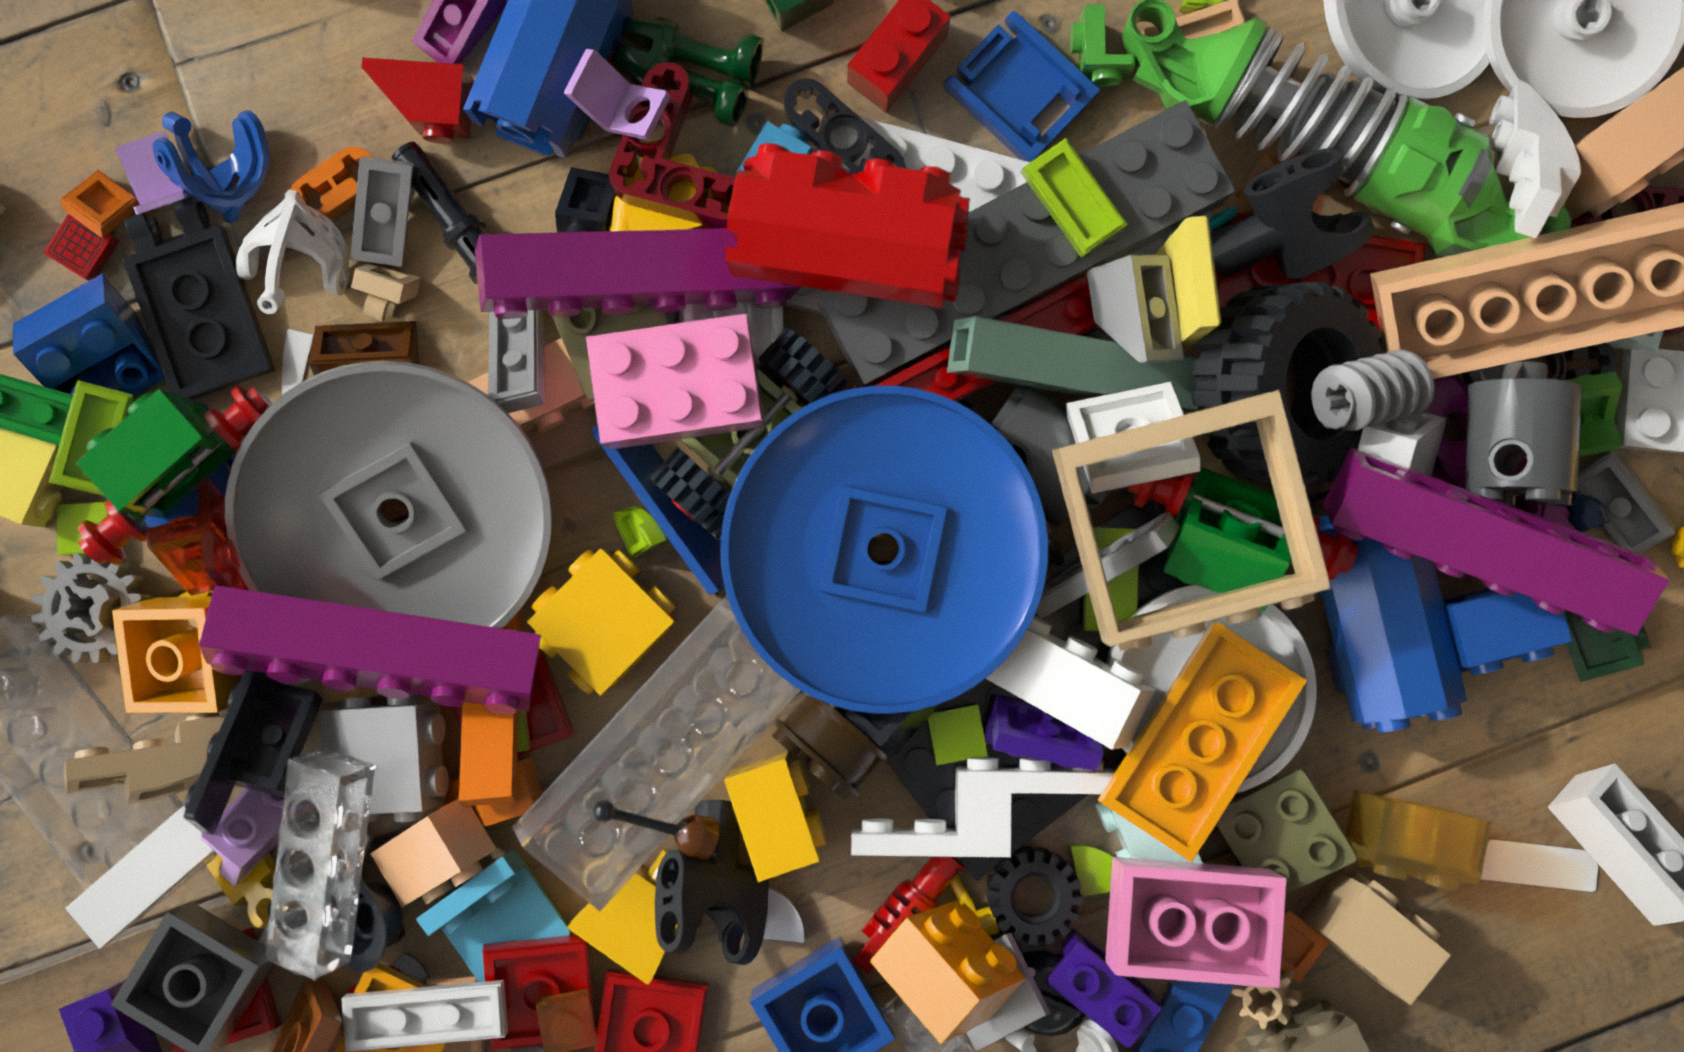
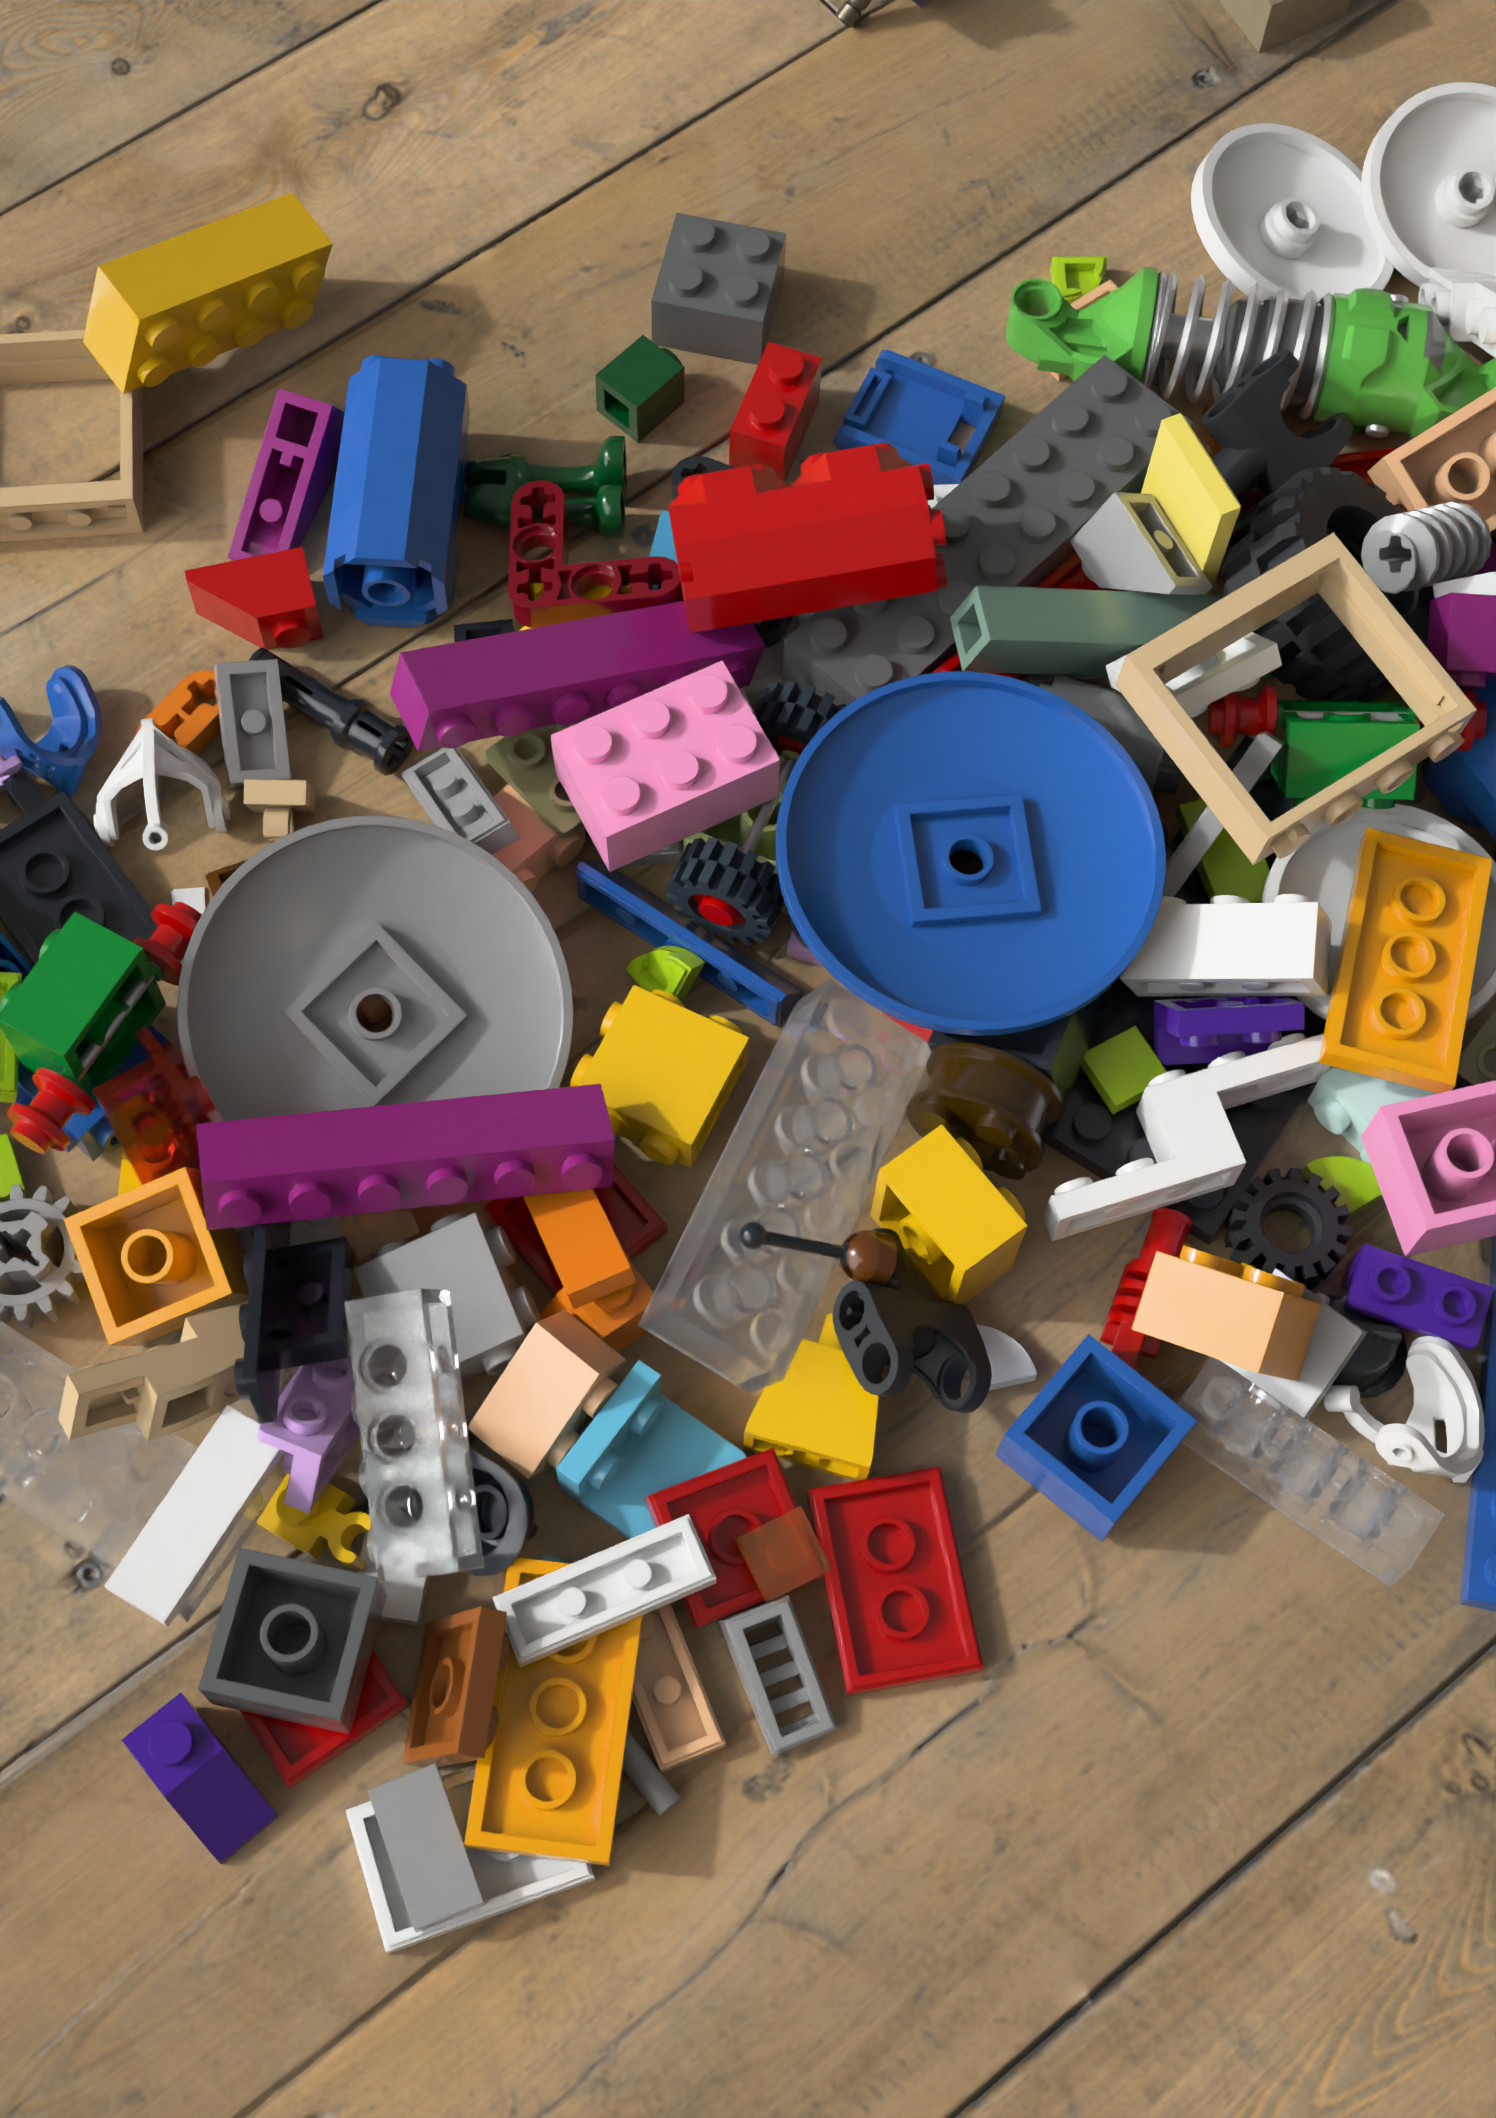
camera: 20 degrees left, 20 degrees down
(610, 97) = (485, 527): lavender bracket -> none
(1073, 198) = (1029, 466): lime tile -> none
(1088, 41) = (981, 363): bright green bracket -> none

